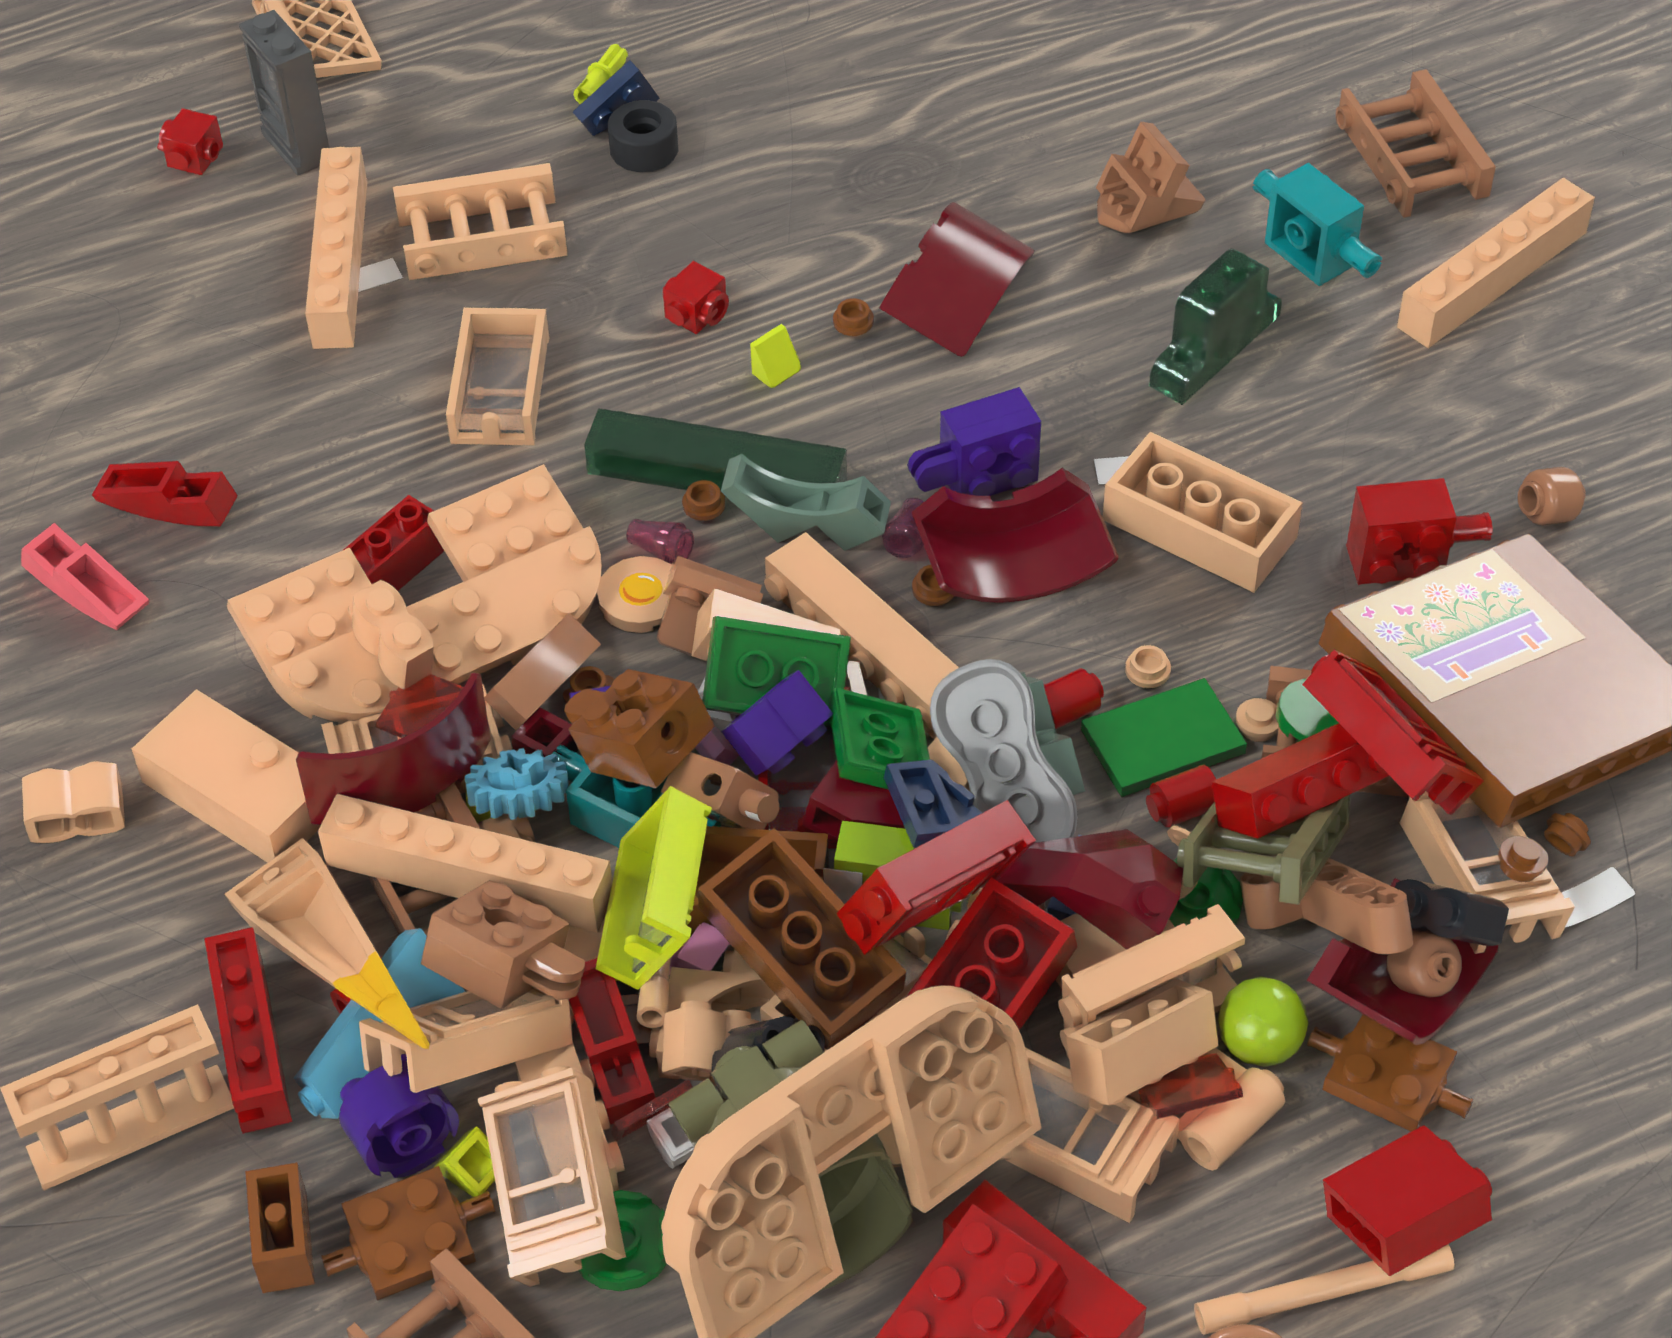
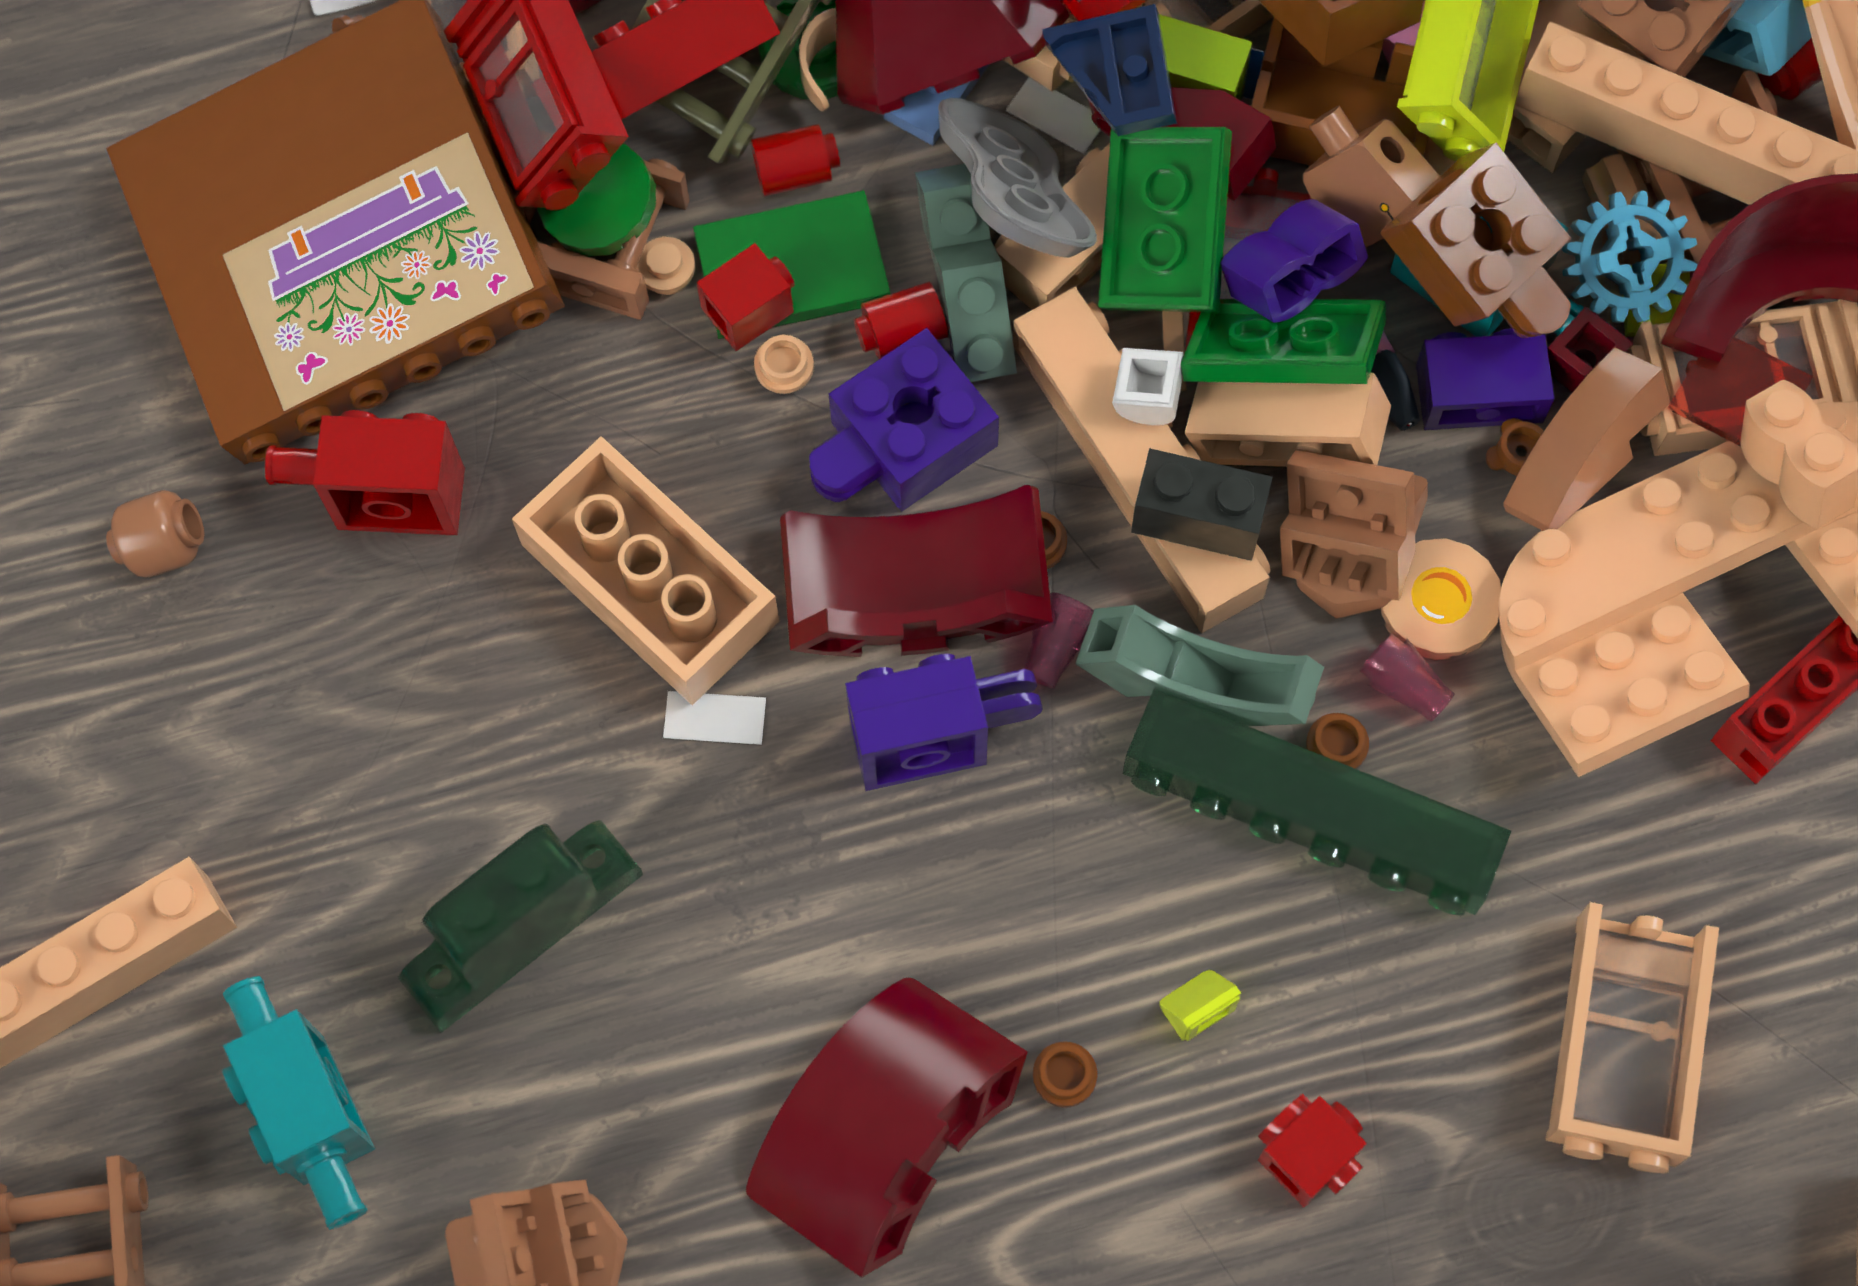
camera: 170 degrees left, 20 degrees up
(820, 566) = (1201, 504): none -> pearl dark grey brick
(871, 640) = (1148, 385): none -> white brick
(1062, 622) = (909, 445): none -> dark purple brick
(1187, 679) = (747, 296): none -> red brick

